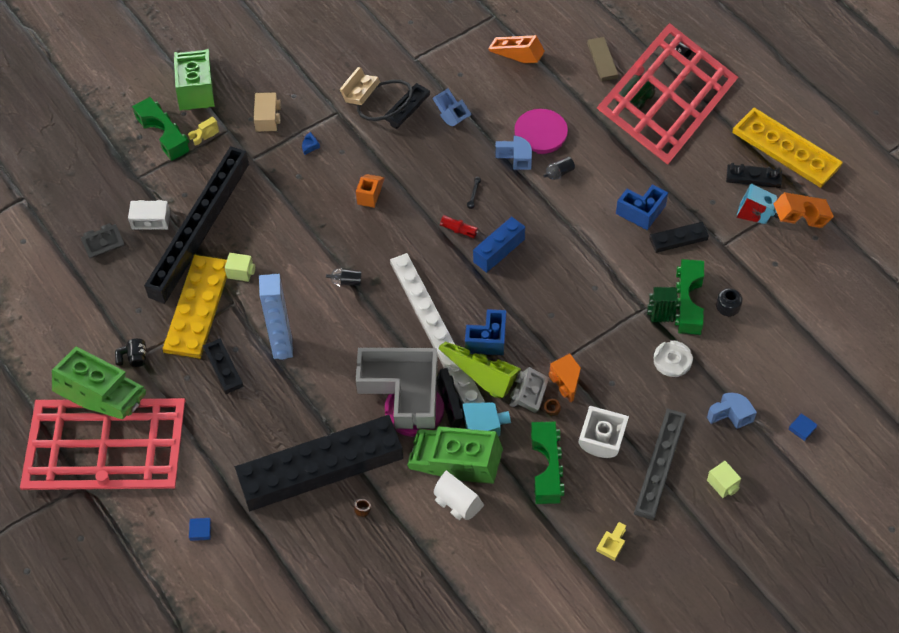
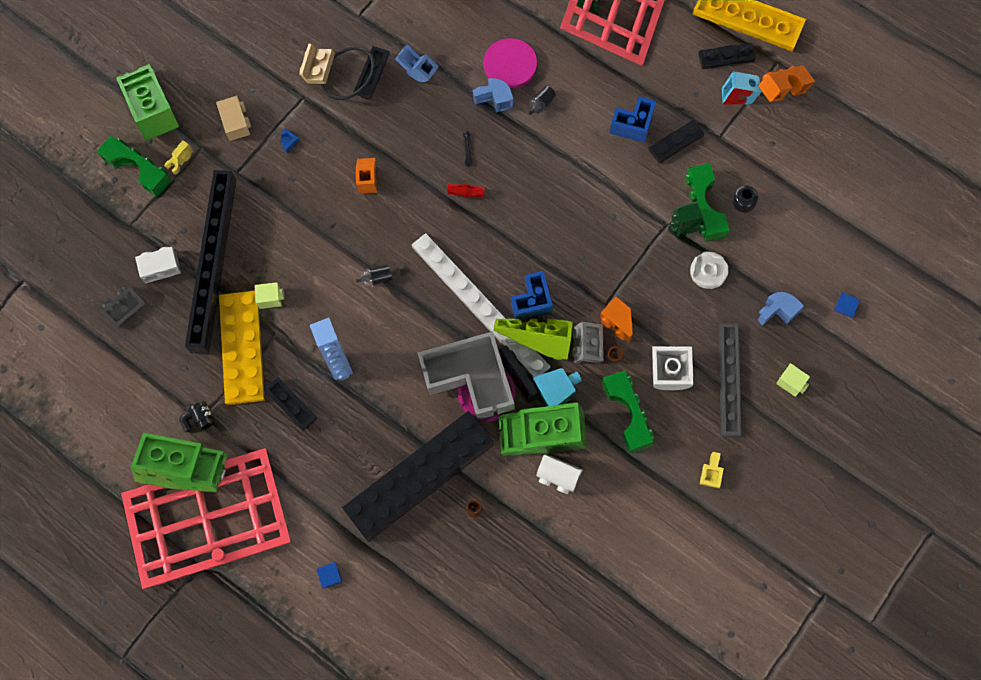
camera: 15 degrees left, 15 degrees up
(499, 244) = (511, 199): blue brick -> none

